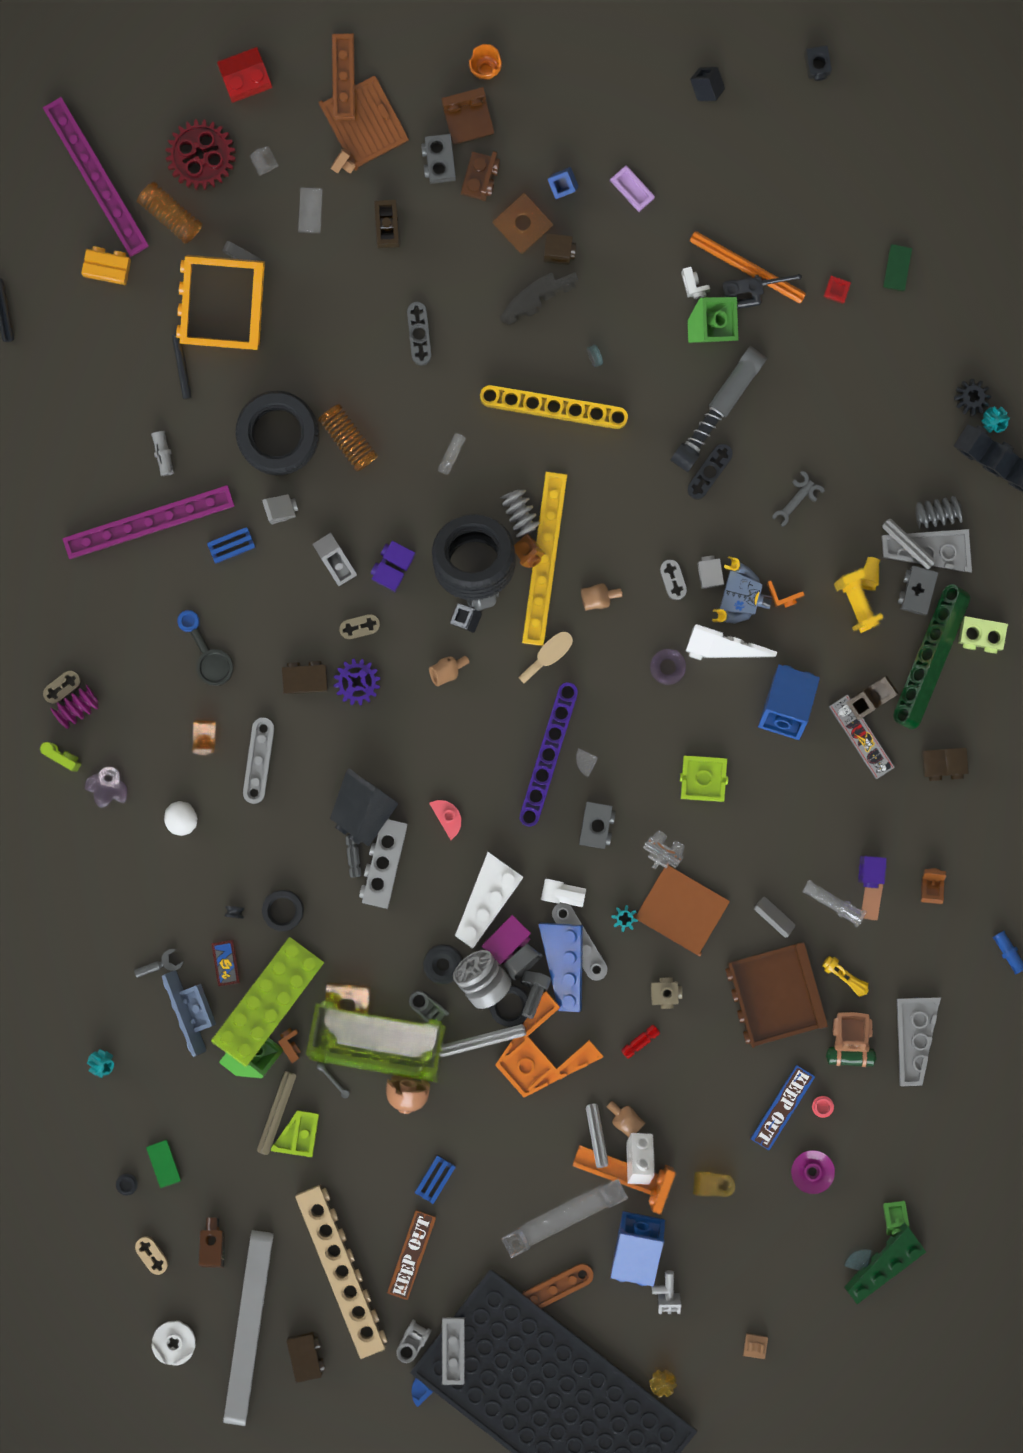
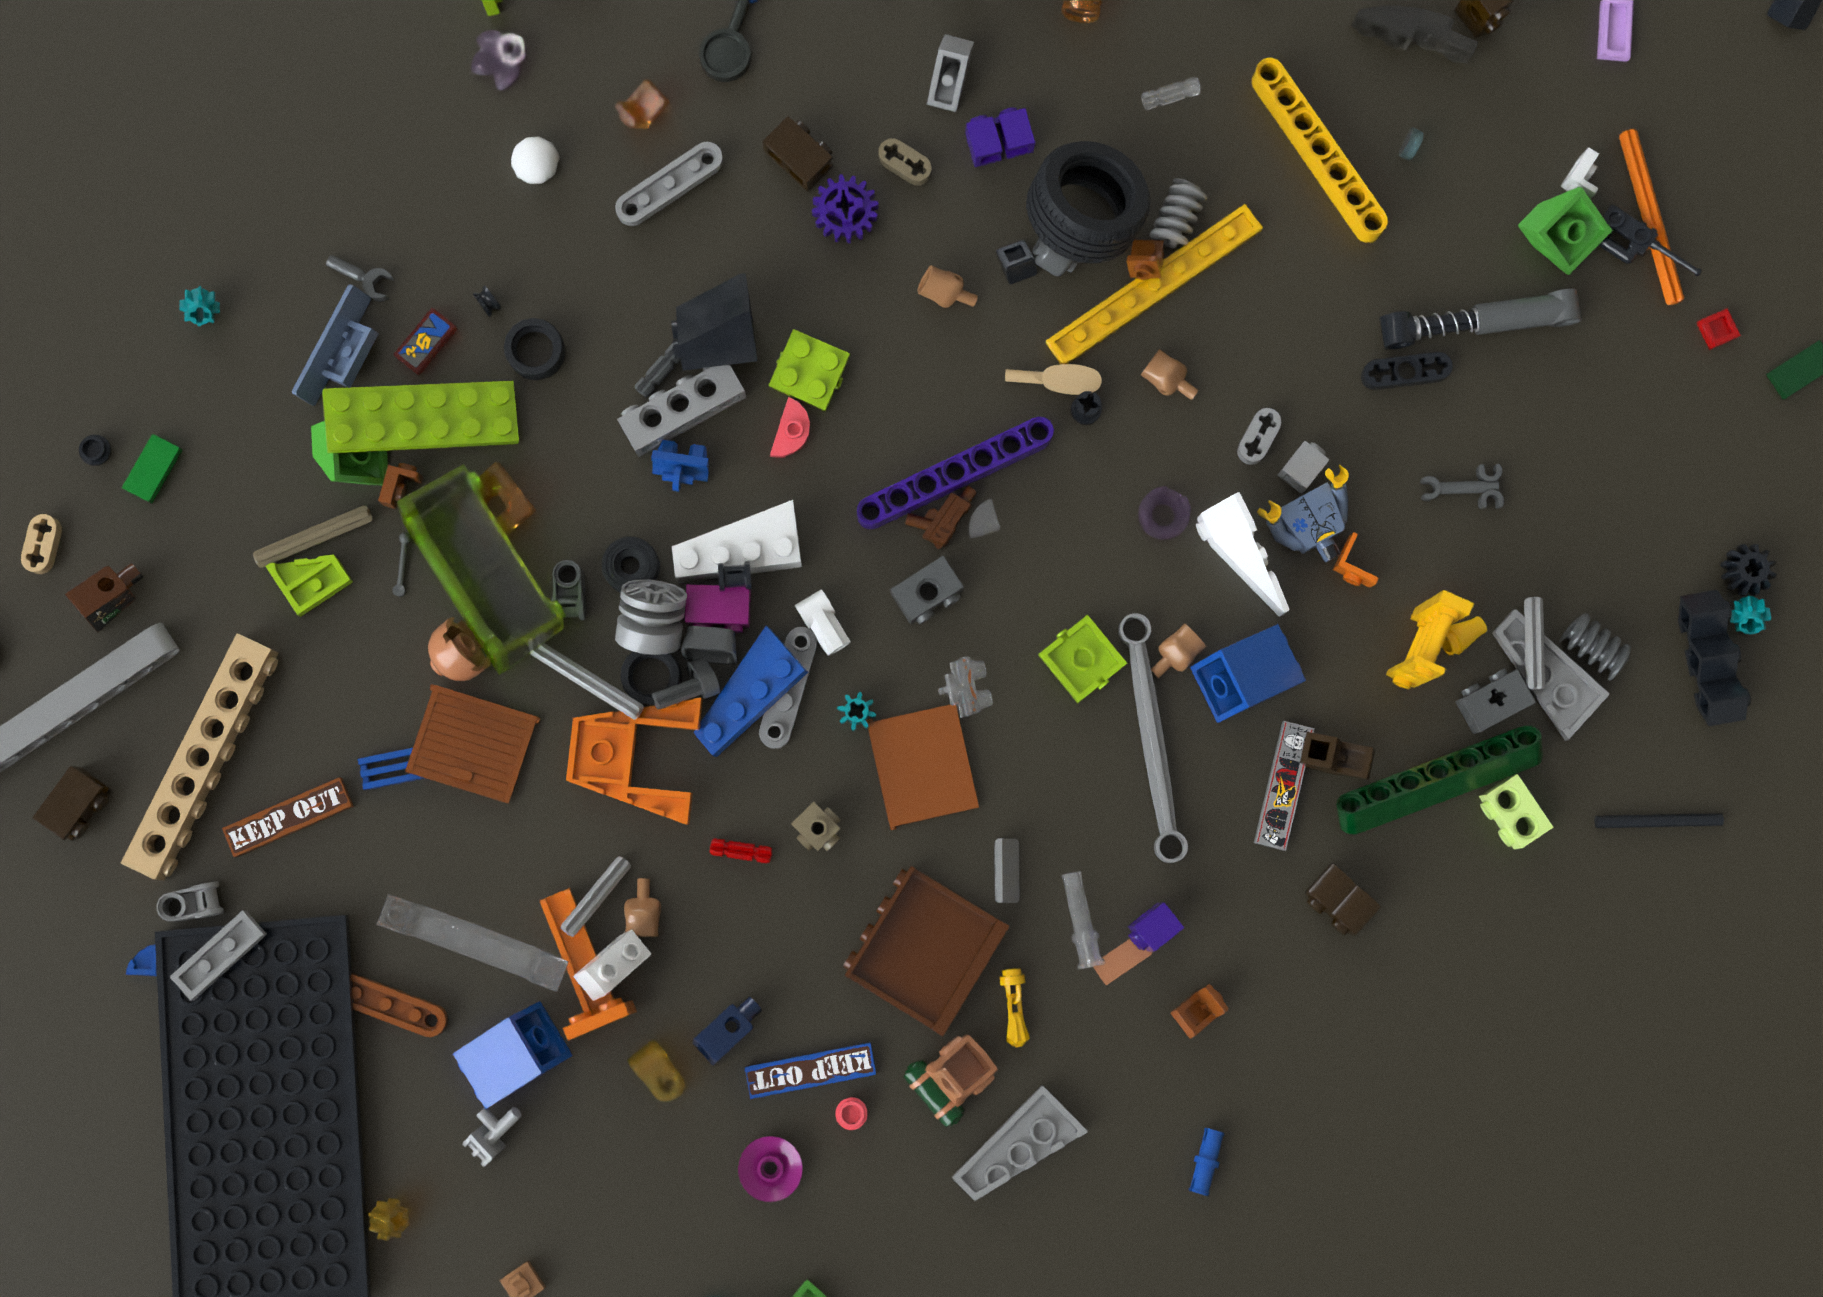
camera: 45 degrees right, 5 degrees down
(414, 894) = (680, 467): none -> blue hips
(424, 779) = (809, 370): none -> lime plate
(460, 1128) = (471, 744): none -> dark orange piece
(501, 918) = (734, 576): none -> black bush
(568, 785) = (942, 524): none -> reddish brown piece
(574, 661) = (1078, 404): none -> black bush
(725, 1141) = (716, 1040): none -> dark blue torso
(744, 726) = (1178, 651): none -> medium nougat piece
(776, 781) = (1152, 738): none -> light grey piece

